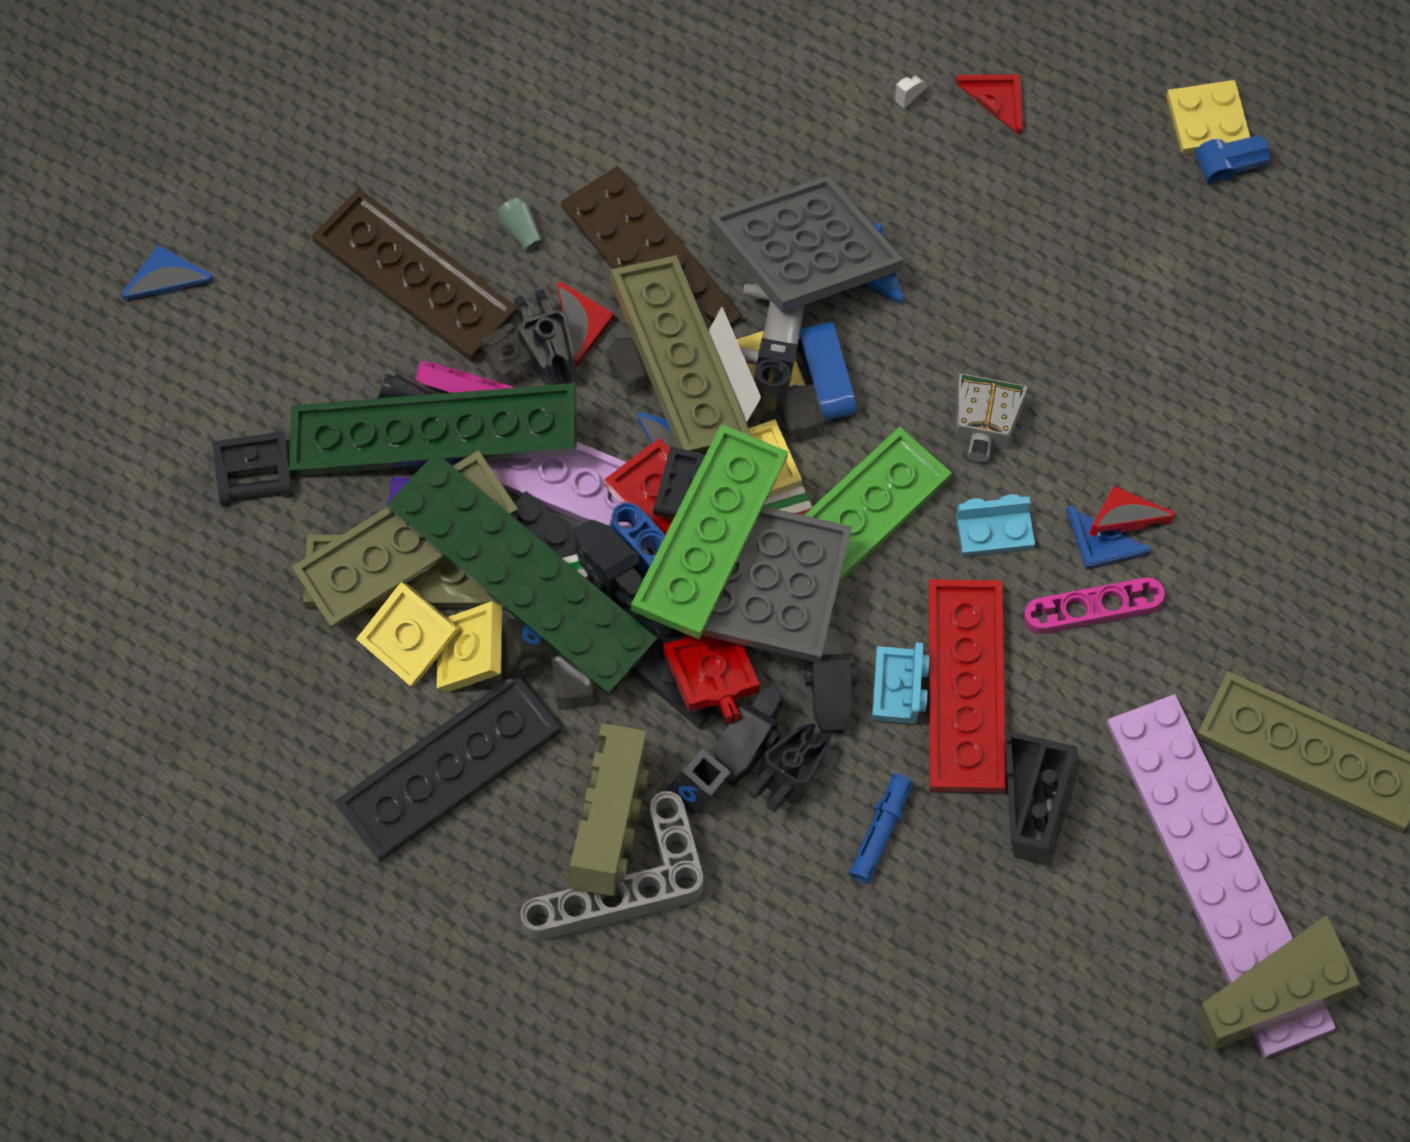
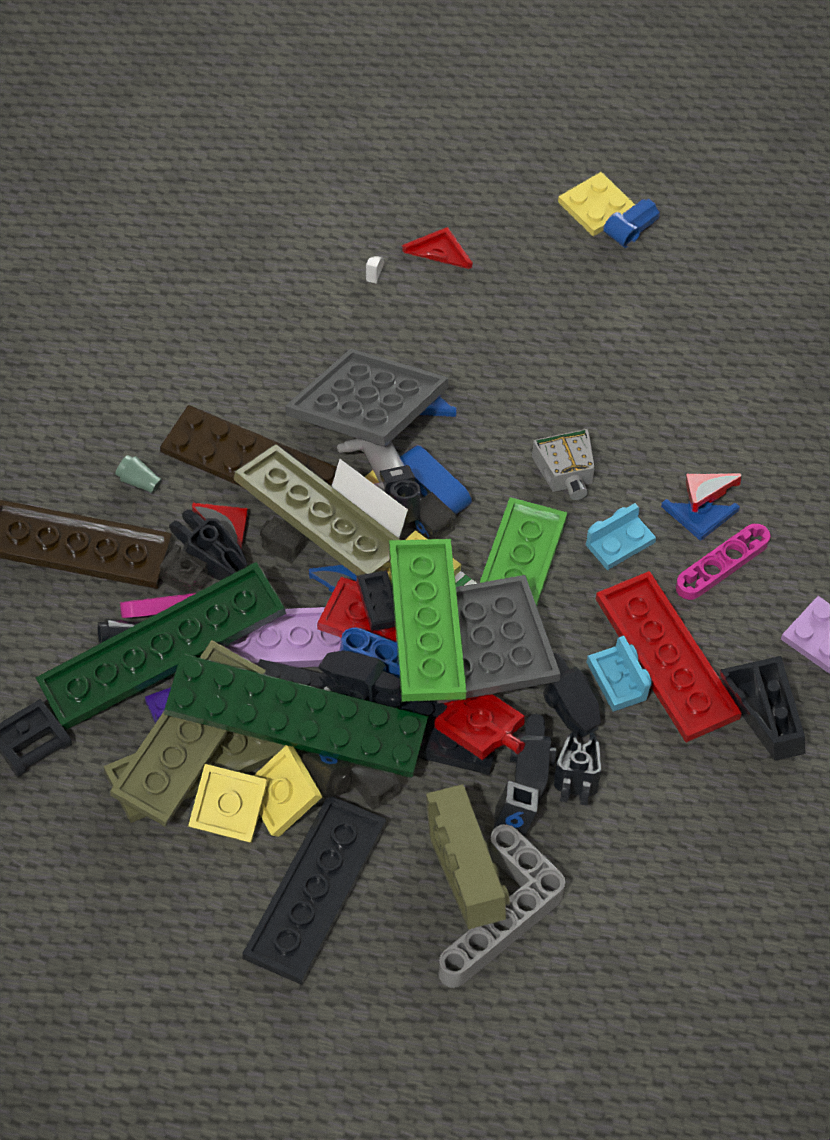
camera: 30 degrees left, 10 degrees down
(887, 814) = (666, 771): blue pin -> none

